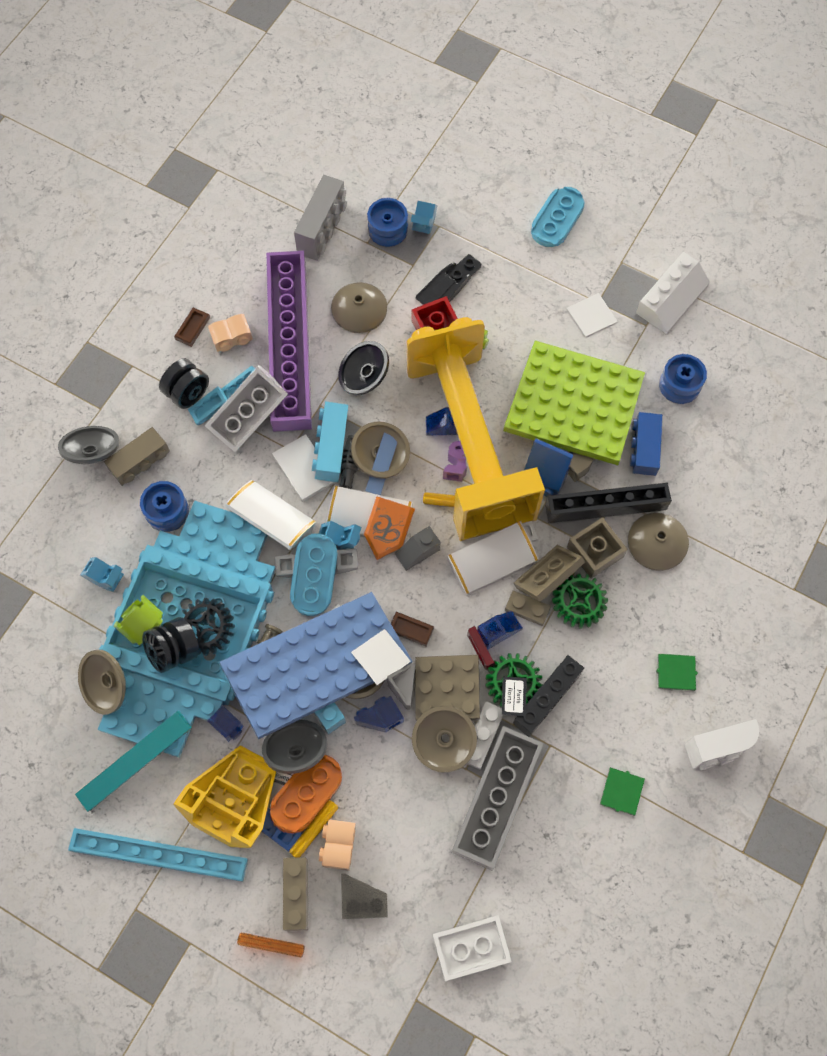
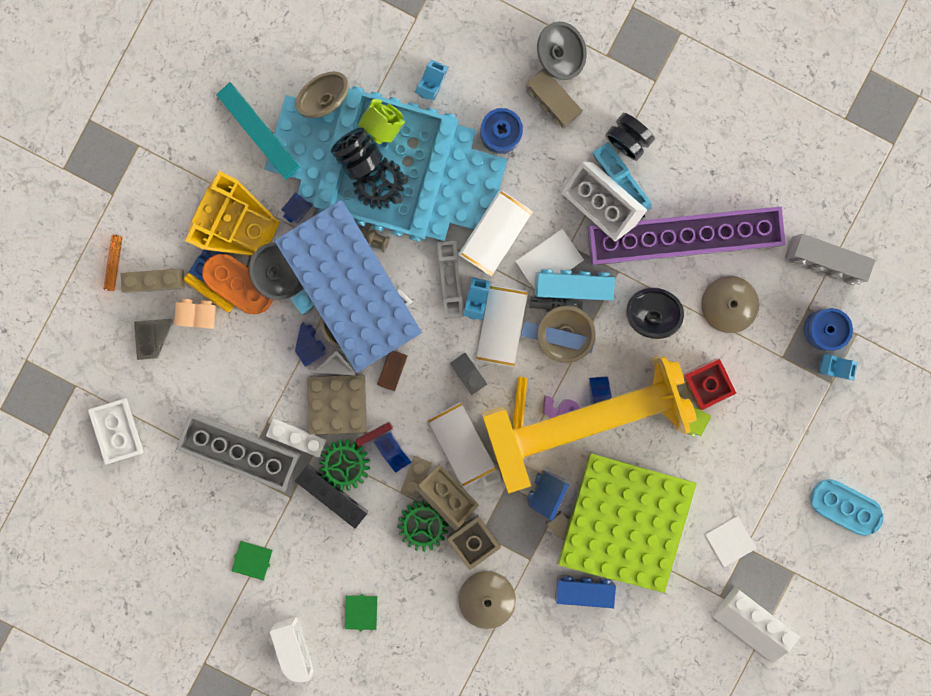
camera: 85 degrees right, 20 degrees up
(158, 854) = (183, 160): medium azure tile -> none
(192, 327) = (700, 136): reddish brown tile -> none
(230, 332) = (693, 176): light nougat brick -> none
(313, 574) = (437, 277): medium azure tile -> none
(380, 656) = (356, 344): white sticker -> none
(387, 526) = (489, 344): orange tile -> none
(428, 739) = (276, 403): dark tan dish -> none
(449, 280) = (761, 394): black piece -> none
(514, 696) = (326, 465): sticker -> none
(608, 502) = (520, 553): black brick -> none
(682, 378) = (661, 640): blue wheel -> none

